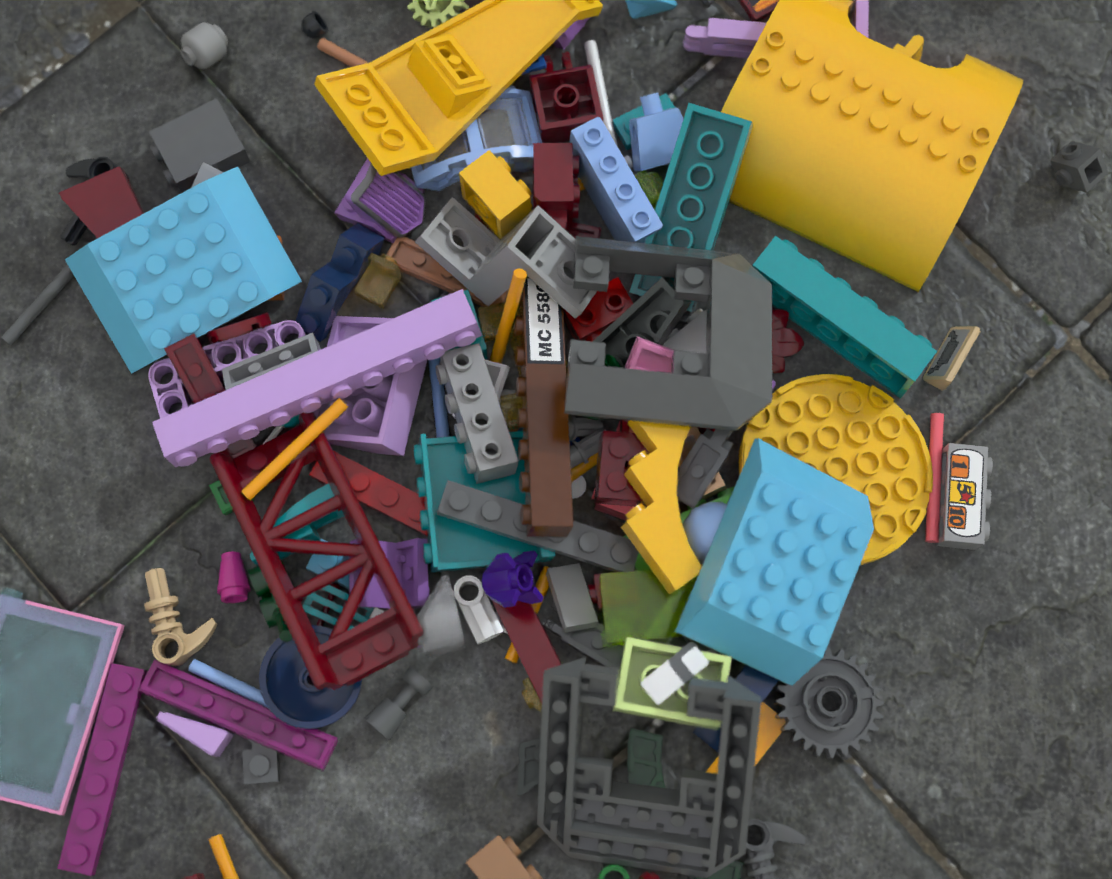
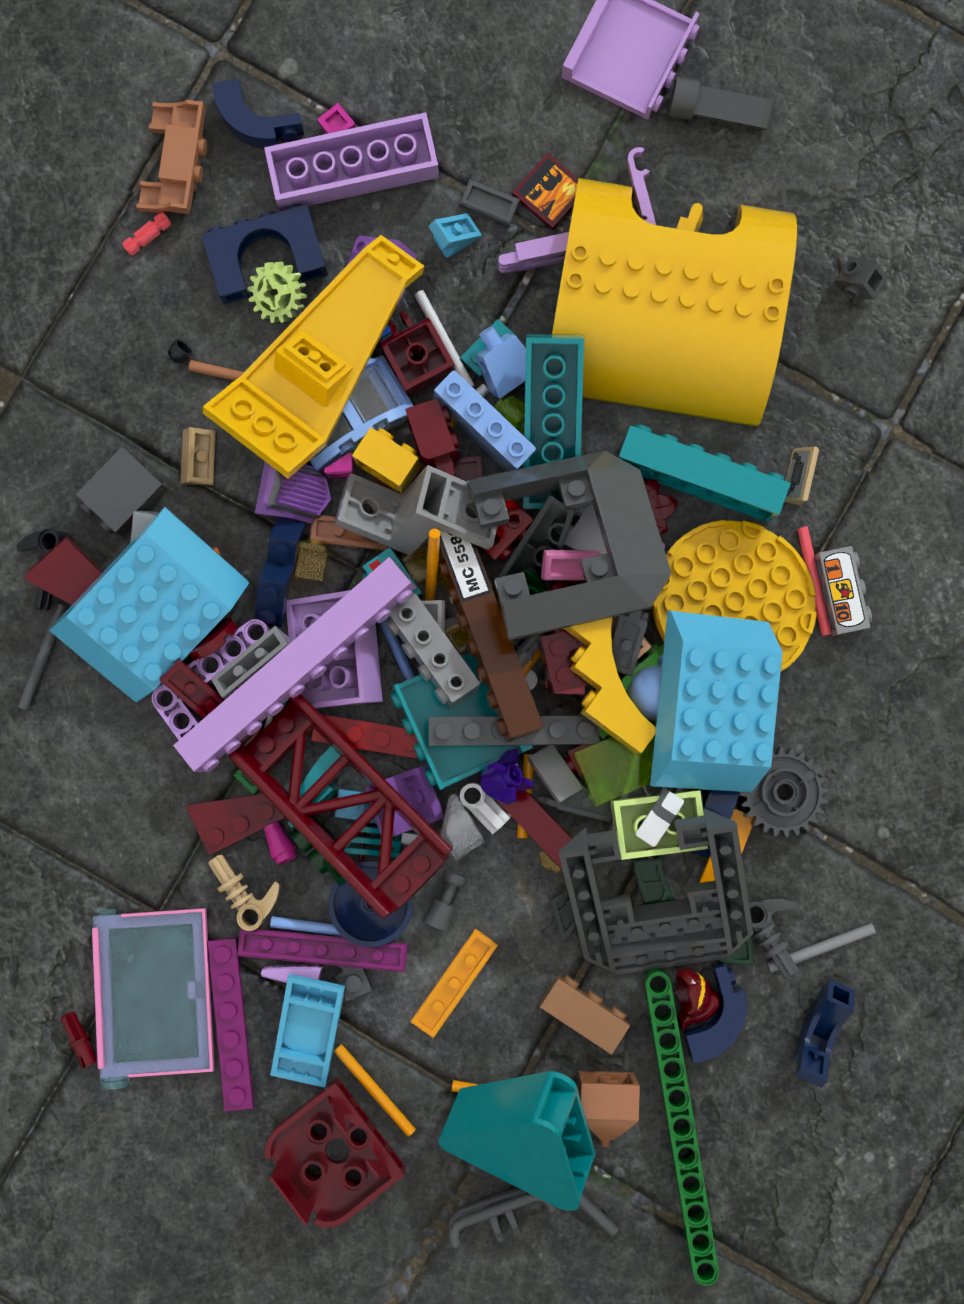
camera: 15 degrees left, 10 degrees up
(187, 801) = (307, 1030): none -> medium azure slope
(189, 535) = (231, 820): none -> dark red wing
(203, 45) = (92, 400): light grey head -> none
(294, 449) = (295, 729): light orange bar -> none
(295, 137) = (198, 456): none -> tan slope
(375, 805) = (454, 983): none -> light orange tile
(442, 192) = (340, 468): none -> dark pink slope

